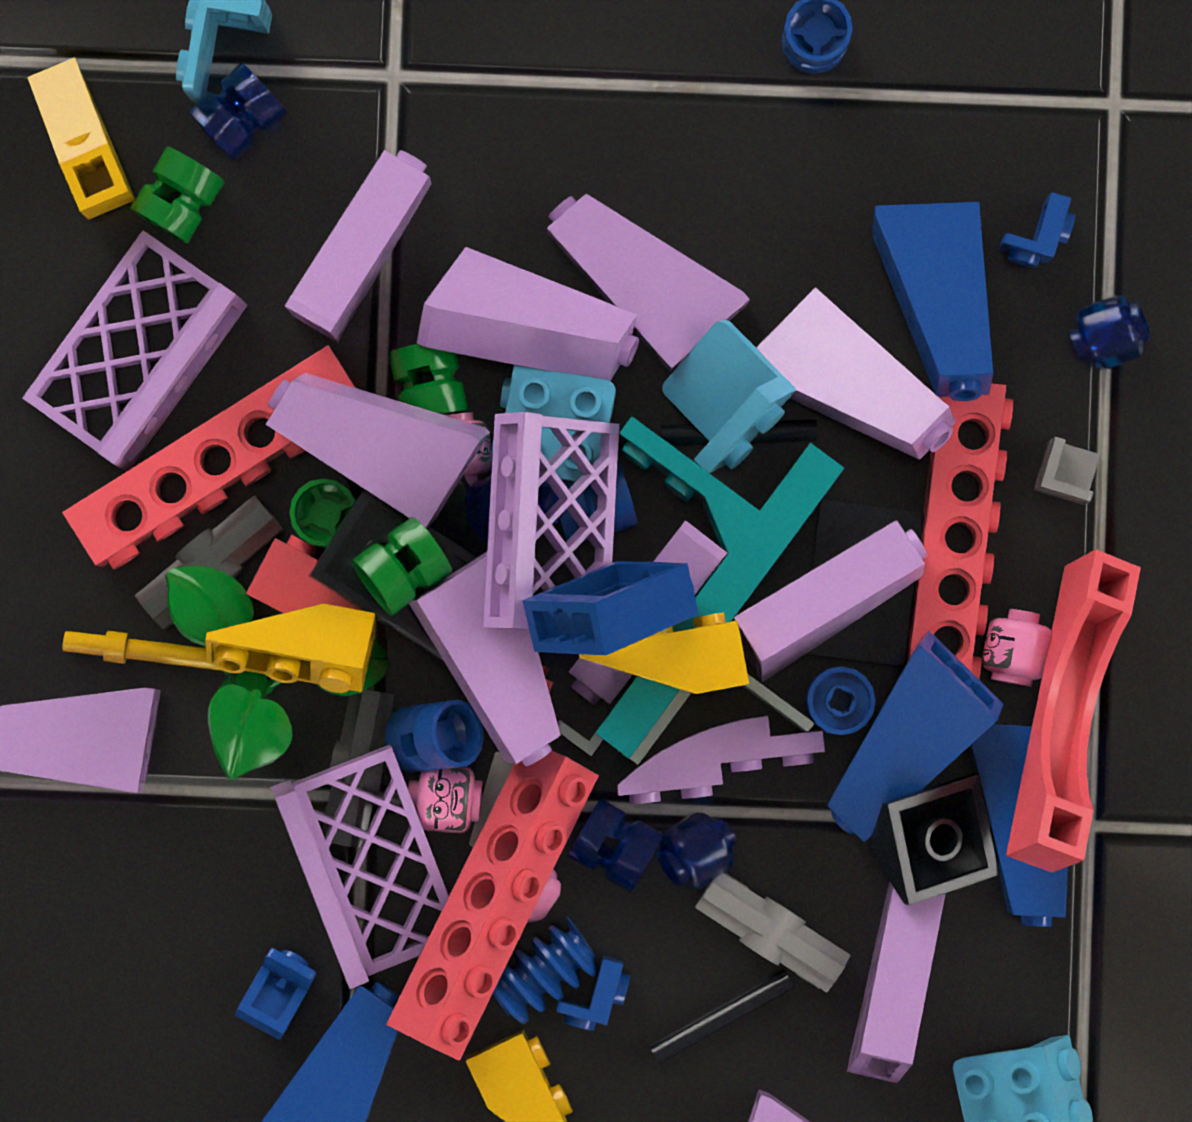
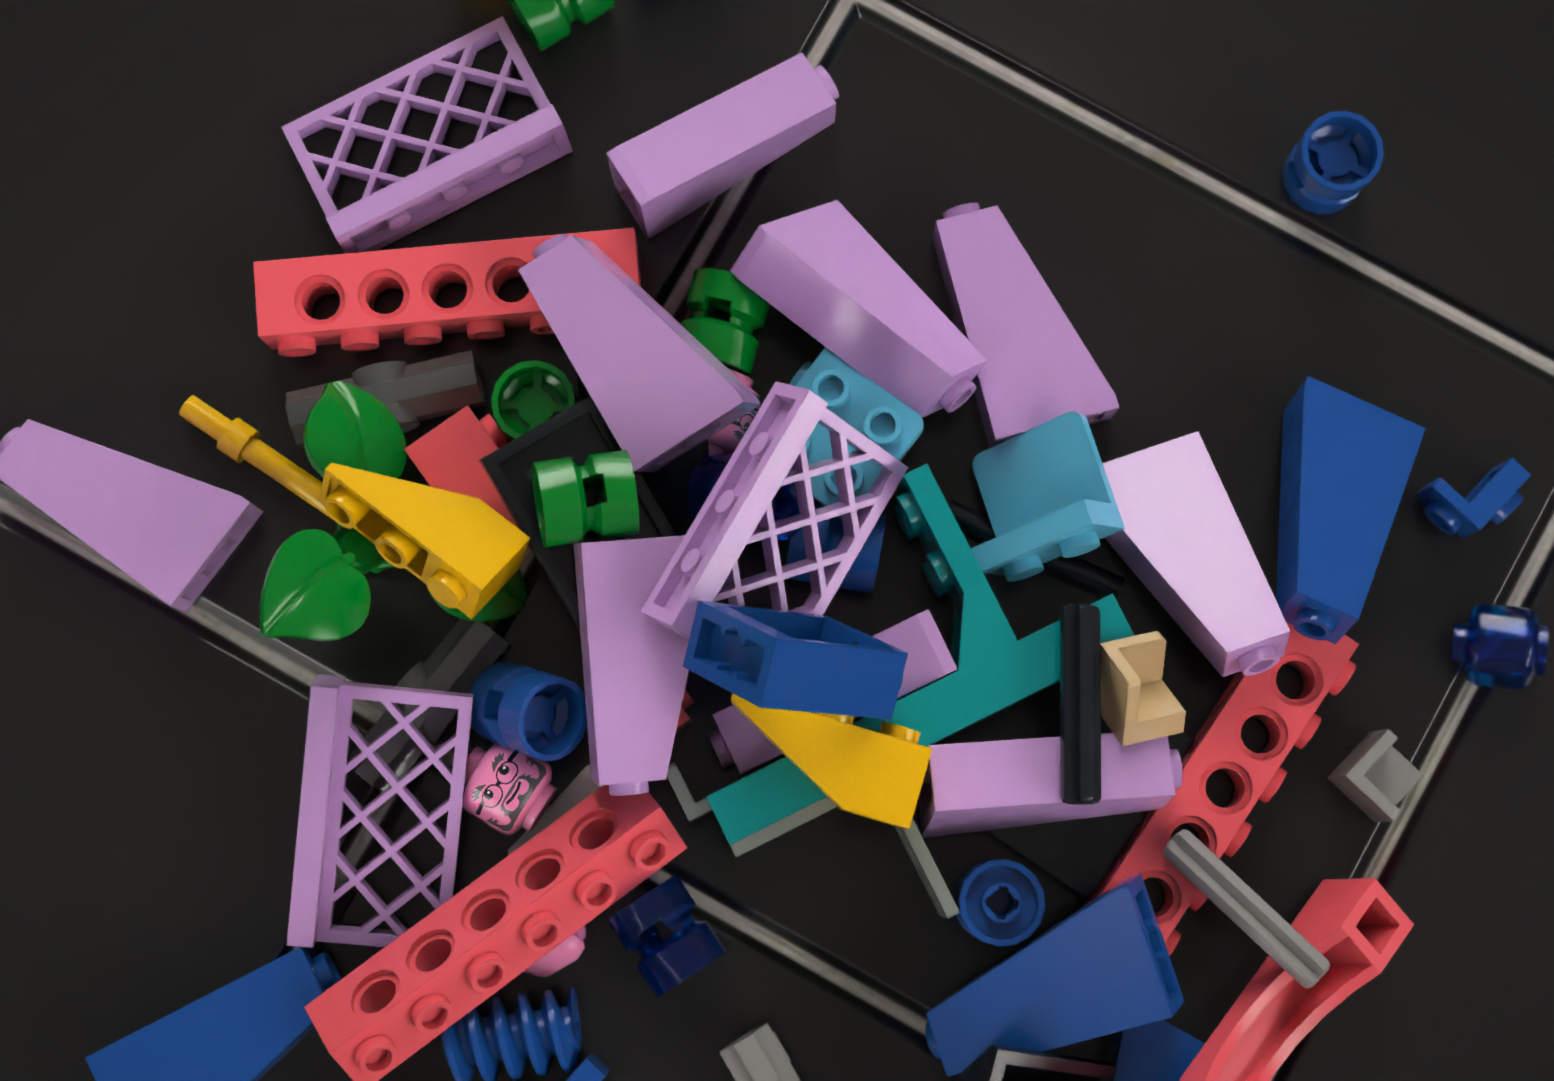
camera: 25 degrees right, 5 degrees down
(276, 992) = (207, 907): blue bracket -> none
(697, 759) = (804, 887): lavender slope -> none
(697, 850) = (754, 989): clear blue head -> none
(825, 534) = (1080, 704): none -> black axle
(859, 504) = (1132, 690): none -> tan panel
(1014, 617) = (1246, 908): none -> light grey axle
(1016, 648) = (1219, 952): bright pink head -> none

